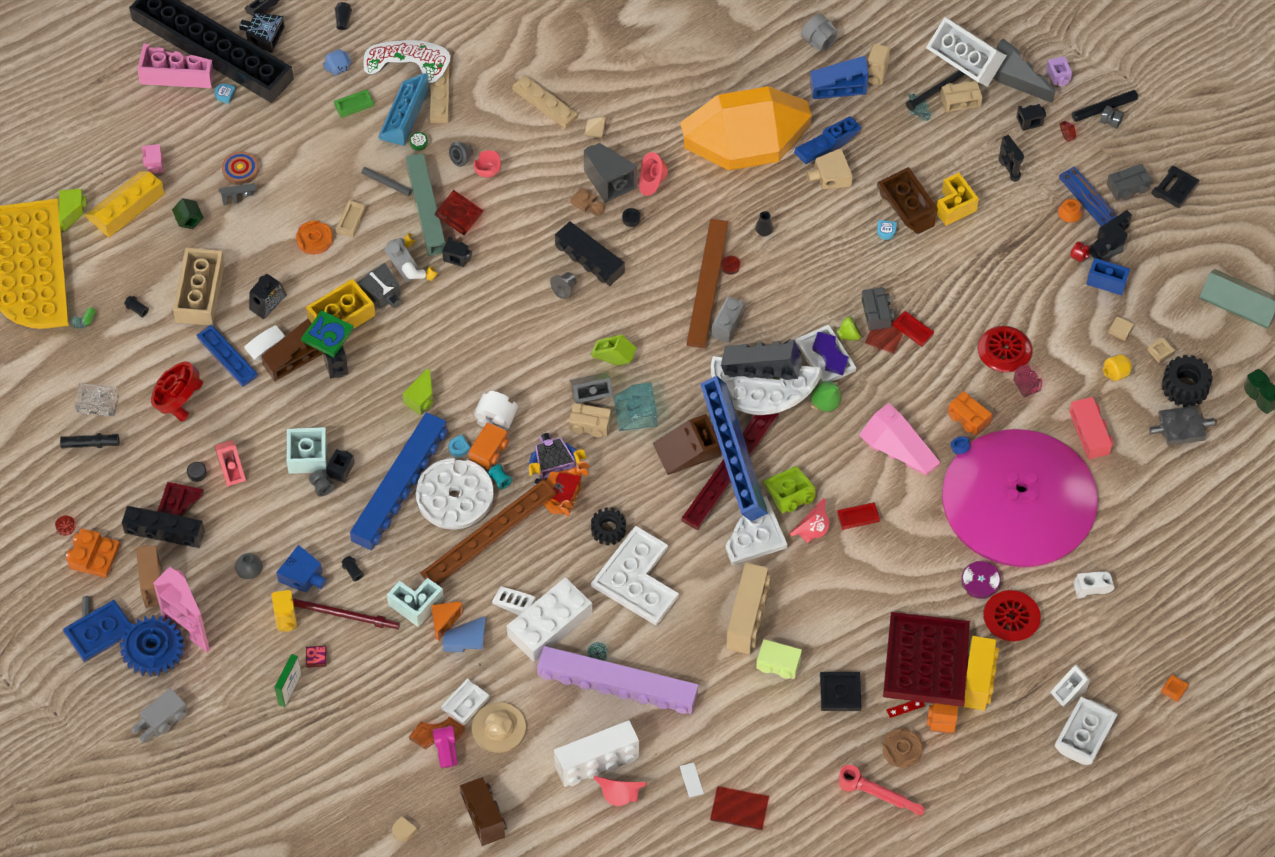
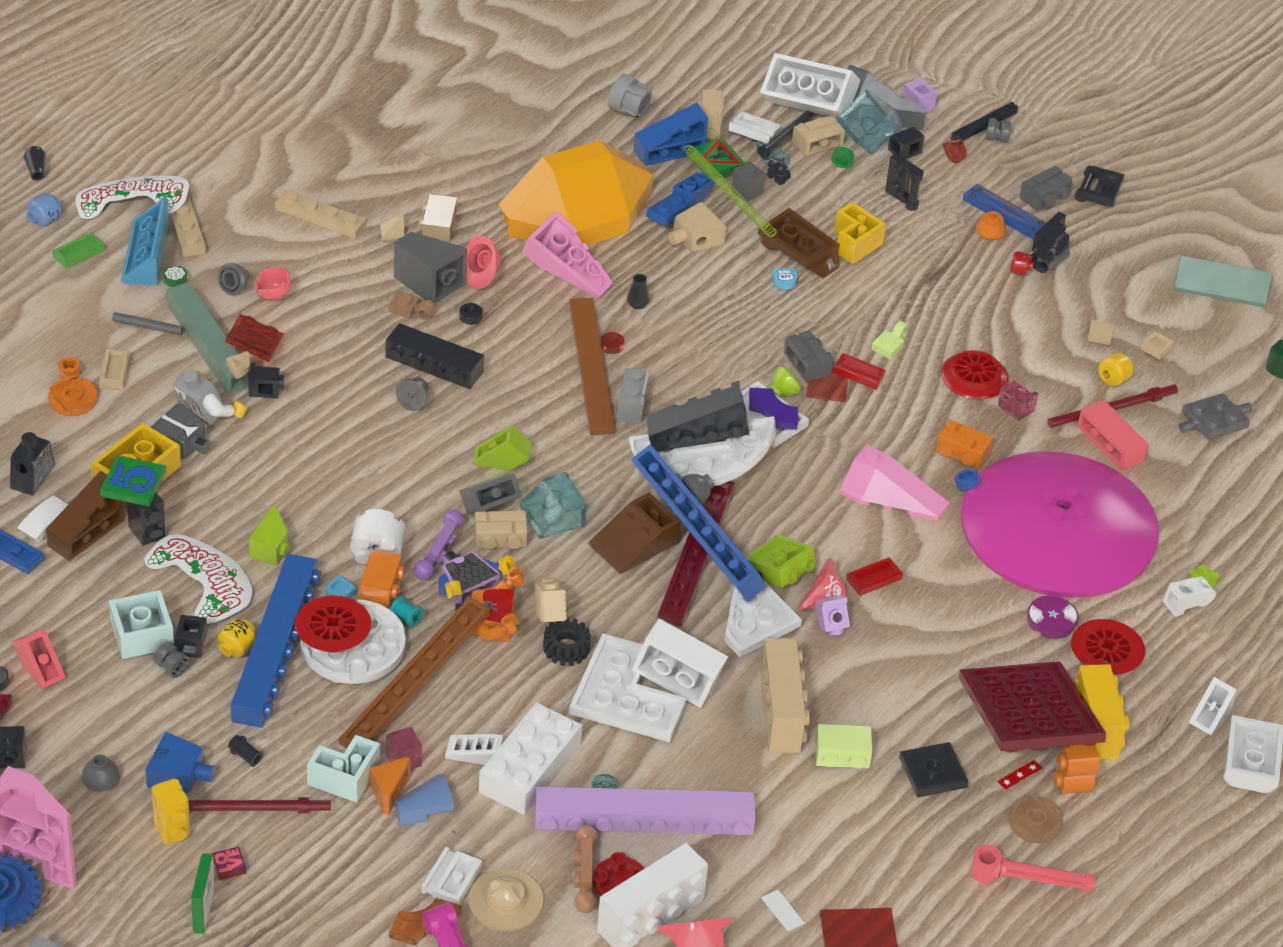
camera: 20 degrees left, 15 degrees down
(321, 208) = (69, 367): none -> orange bush
(371, 475) = (236, 638): none -> yellow head
(373, 409) = (224, 581): none -> sticker
(438, 237) = (239, 364): none -> tan tile
(441, 462) = (317, 615): none -> red piece
(462, 592) = (404, 744): none -> clear pink brick
(523, 442) = (424, 568): none -> medium lavender plate
(561, 709) = (585, 900): none -> nougat plate
(580, 726) = (614, 872): none -> red dish
(603, 492) = (550, 600): none -> tan brick
(633, 123) = (438, 217): none -> brick
(679, 566) = (679, 663): none -> white brick
(717, 176) = (563, 254): none -> bright pink wedge
(745, 416) = (699, 486): none -> dark grey brick
(808, 540) = (827, 608): none -> lavender brick
(825, 396) = (785, 454): bright green hat -> none
(869, 104) = (719, 155): none -> green piece
(871, 163) = (724, 190): none -> lime piece
(887, 133) = (748, 181): none -> dark grey brick
(912, 79) = (754, 127): none -> white plate
(917, 125) = (778, 171): none -> black plant
(947, 307) = (891, 343): none -> yellowish green plate
(973, 121) = (842, 157): none -> green tile
(1003, 95) = (869, 121): none -> clear light blue slope
(1108, 276) = (1066, 280): blue brick -> none
(1115, 568) = (1202, 571): none -> lime plant
(1140, 396) = (1152, 395): none -> dark red bar
(1189, 368) = (1202, 368): black tyre -> none

